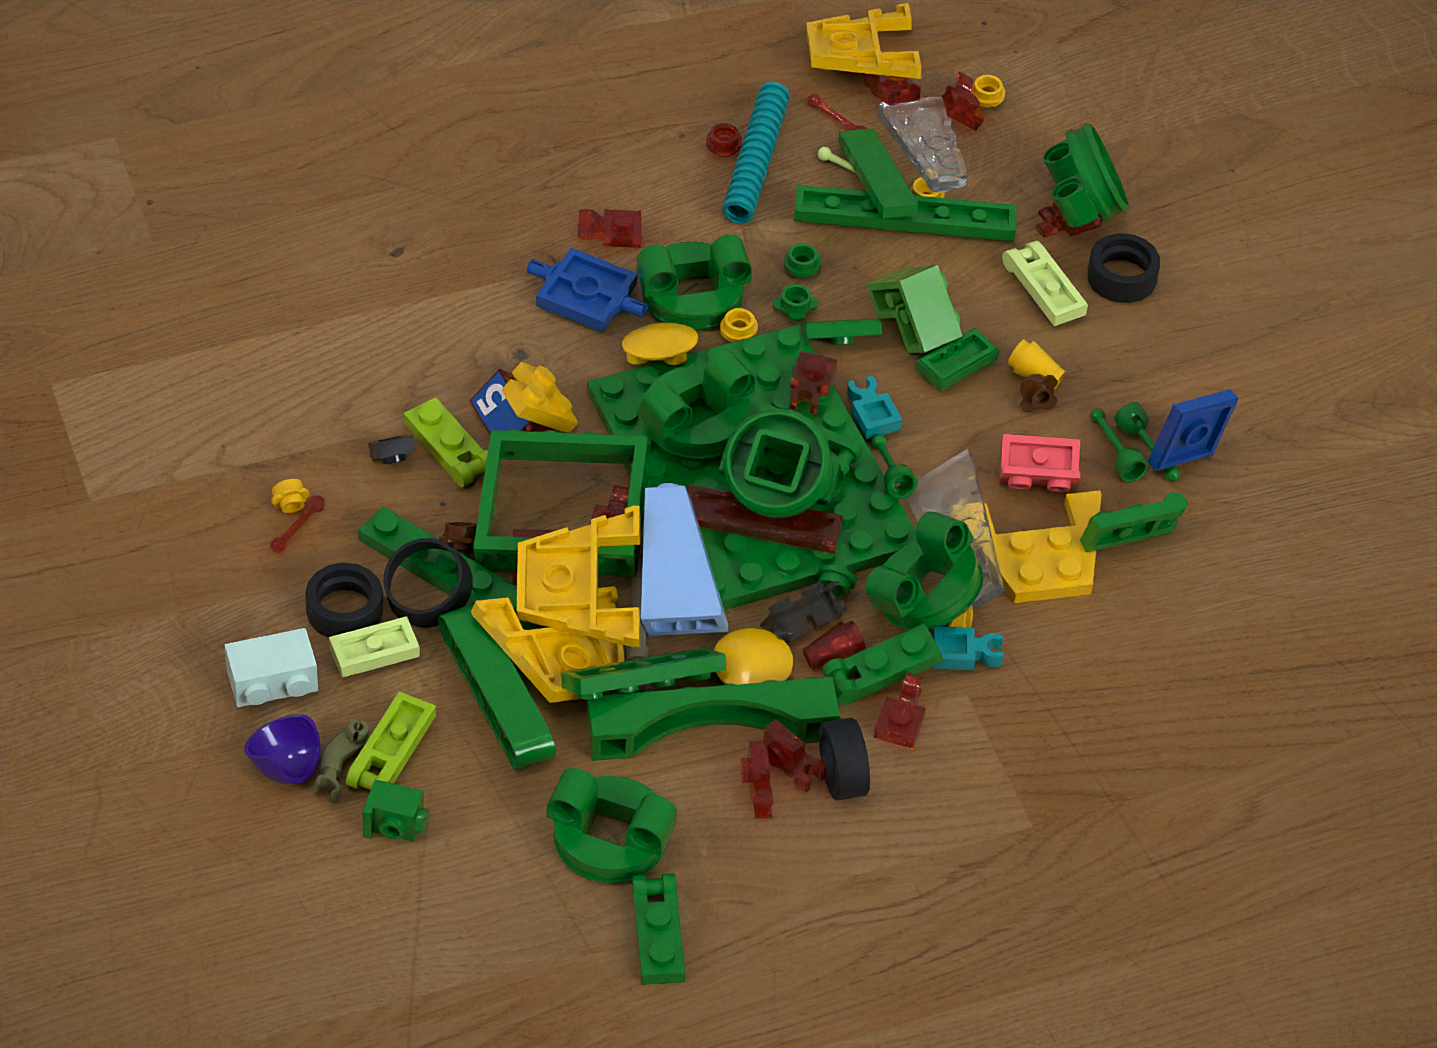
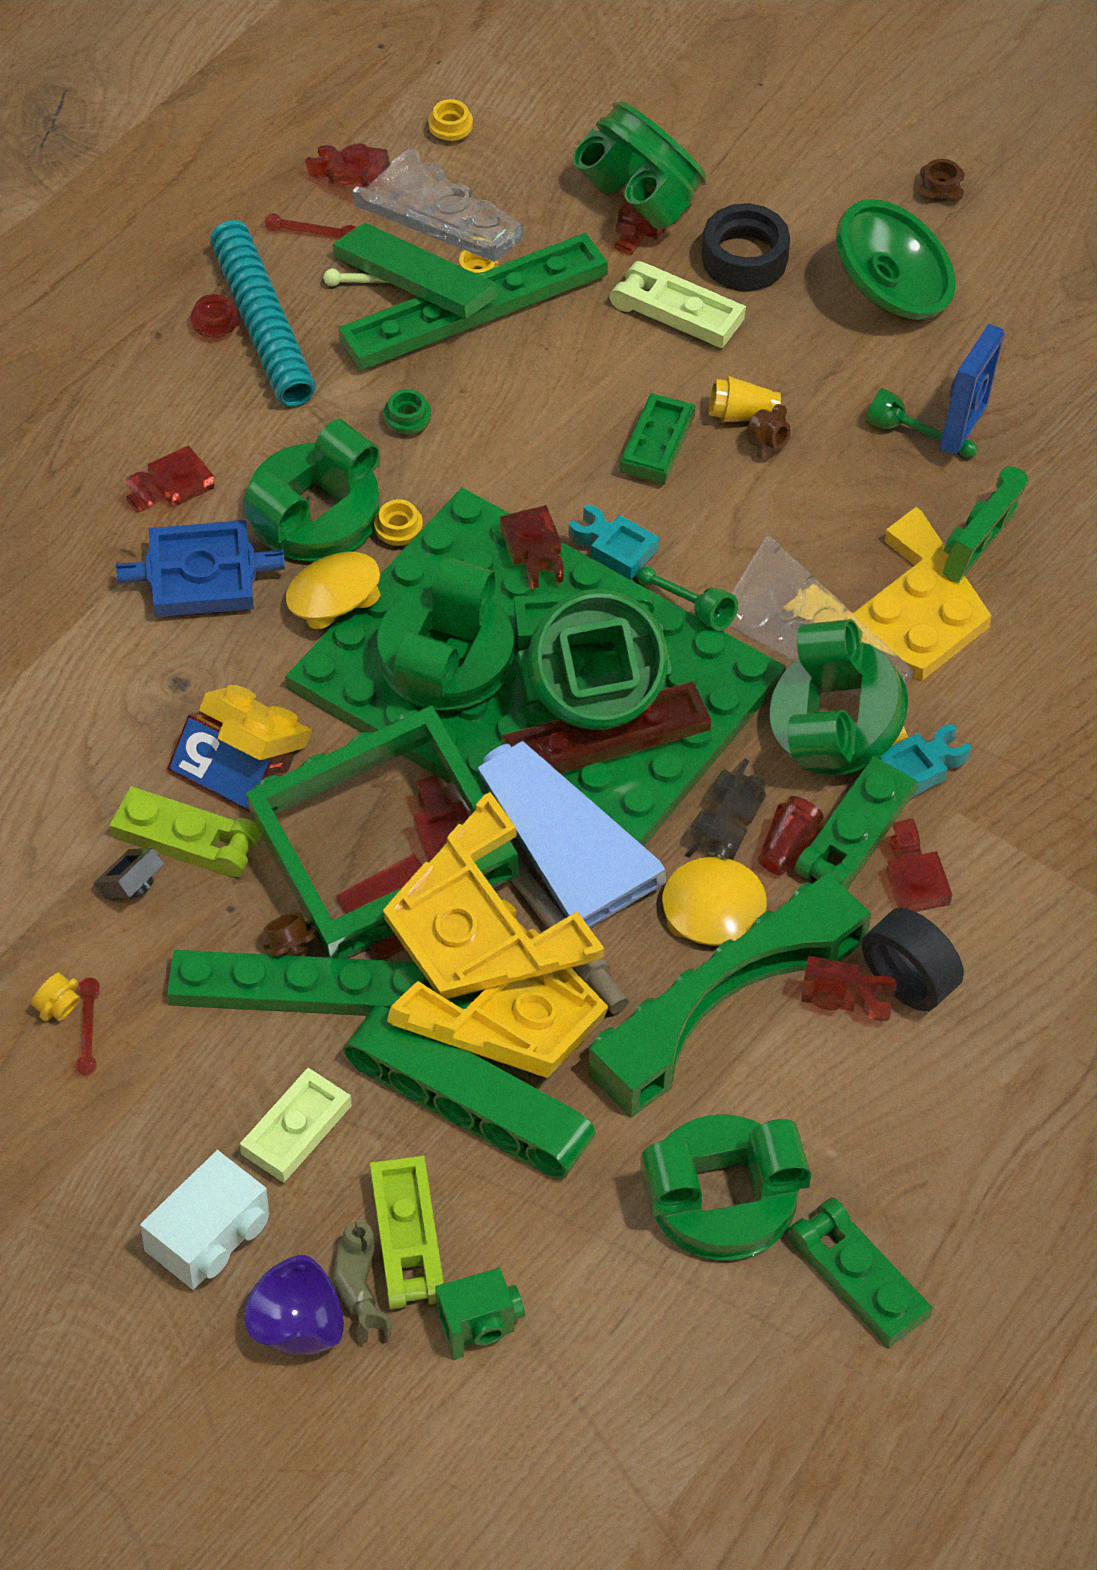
camera: 30 degrees left, 5 degrees up
(343, 577) = (218, 1053): black tyre -> none
(457, 599) = (317, 1061): black tyre -> none
(657, 670) = (625, 983): green plate -> none
(756, 772) = (829, 1029): clear red plate -> none
(795, 302) = (437, 463): green plate -> none
(839, 572) = (729, 753): green plate -> none
(841, 330) = (514, 468): green plate -> none
(855, 46) = (273, 140): yellow wing -> none
(920, 306) = (582, 395): bright green brick -> none
(962, 104) = (438, 146): clear red plate -> none
(1039, 462) = (833, 507): coral bracket -> none
(1129, 462) = (919, 458): green hinge -> none
(1216, 323) = (895, 259): none -> green dish
(1305, 292) = (941, 181): none -> reddish brown plate

